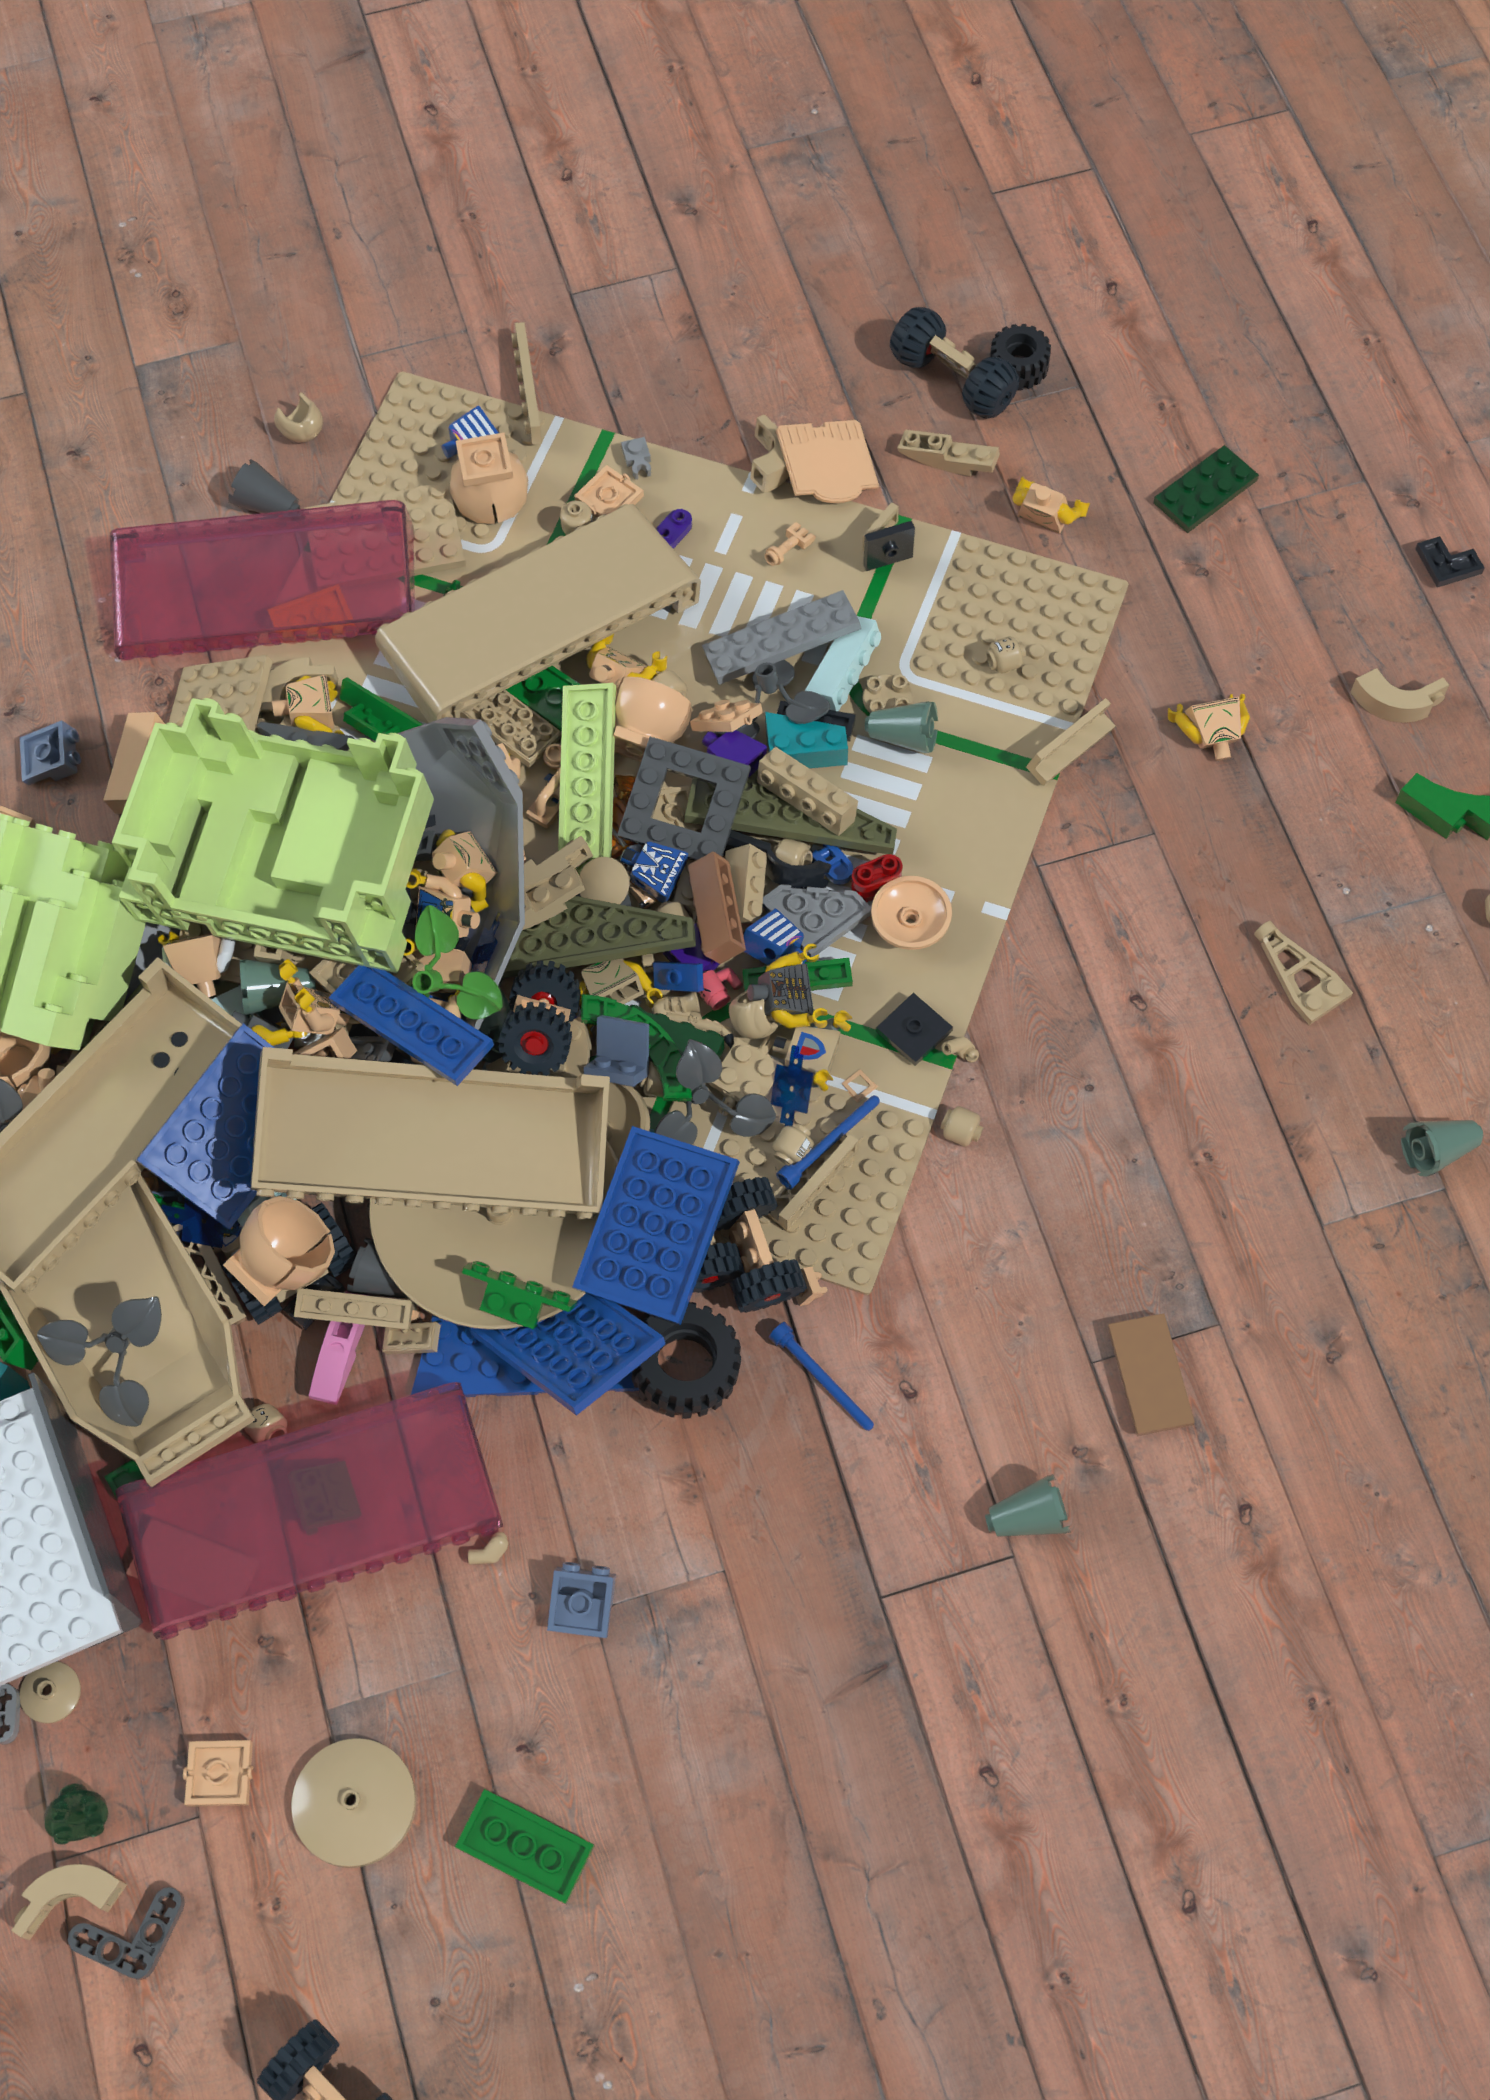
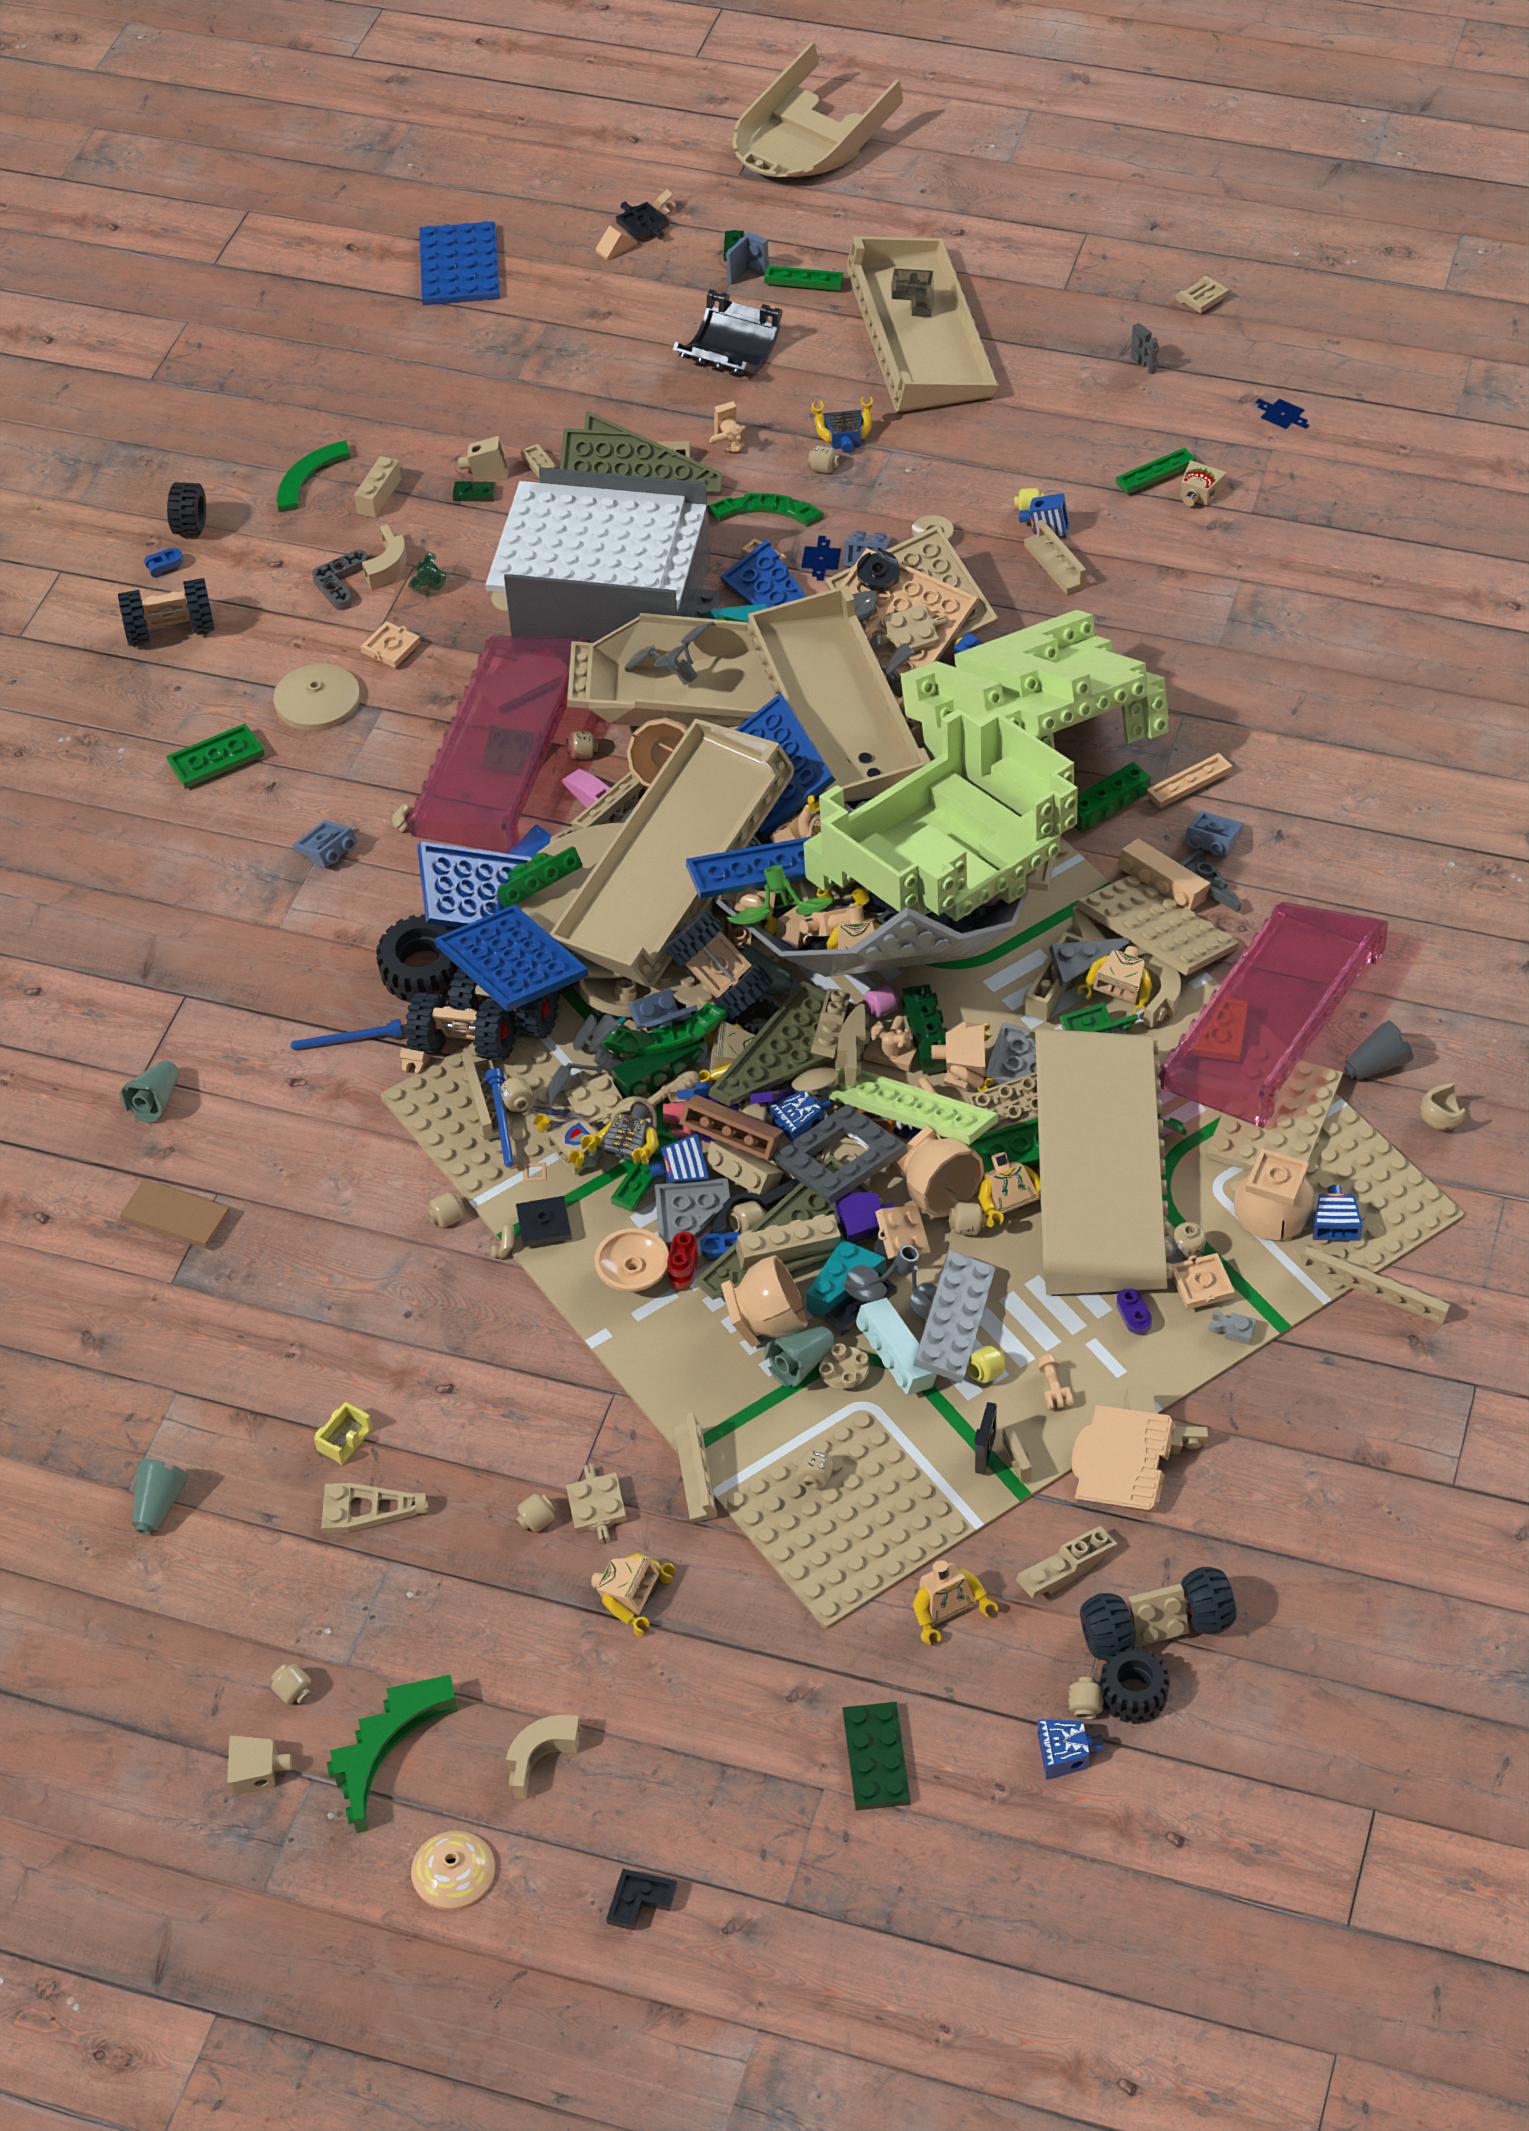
camera: 125 degrees right, 15 degrees down
(108, 737) = (1218, 885): none -> dark grey wing
(657, 899) = (770, 1097): none -> dark purple plate
(807, 591) = (986, 1364): none -> light yellow head
(885, 769) = (765, 1302): none -> light nougat plate
(1053, 382) = (1085, 1698): none -> tan head
(1103, 375) = (1065, 1746): none -> torso
(1155, 804) = (596, 1503): none -> tan plate
(1204, 836) = (535, 1512): none -> tan head
(1255, 1042) = (343, 1433): none -> light yellow window

